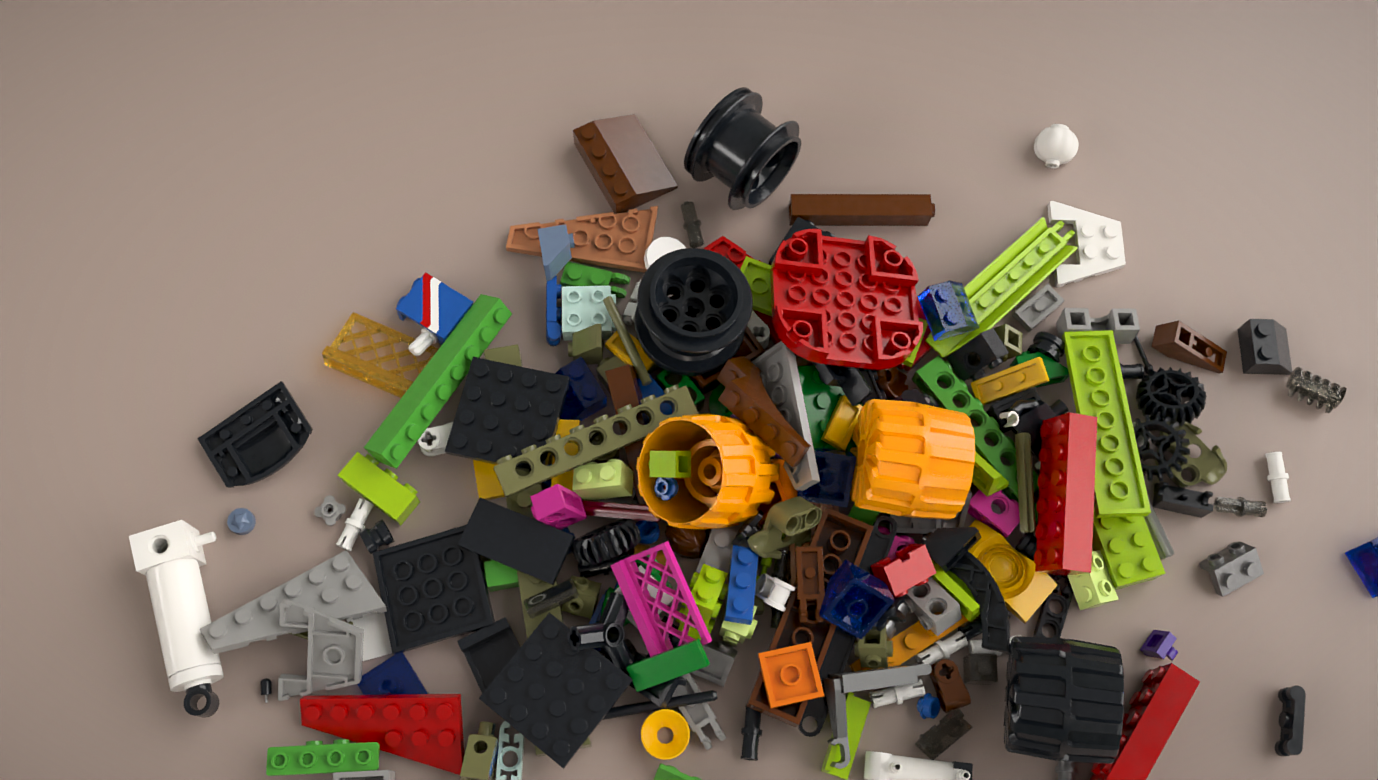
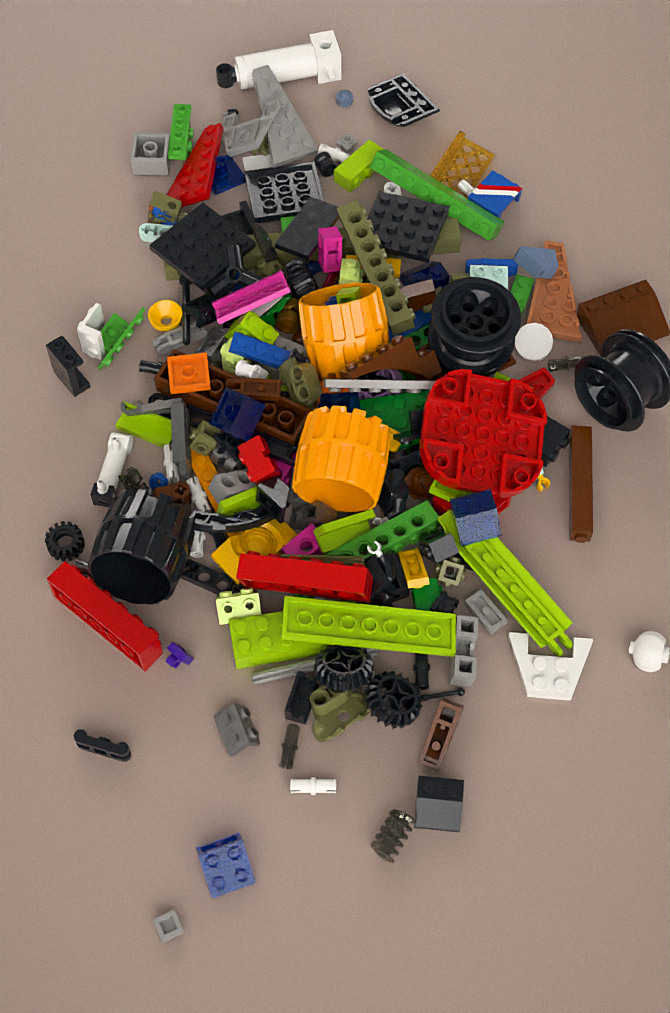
camera: 100 degrees right, 10 degrees down
(668, 665) = (207, 304): green tile -> none

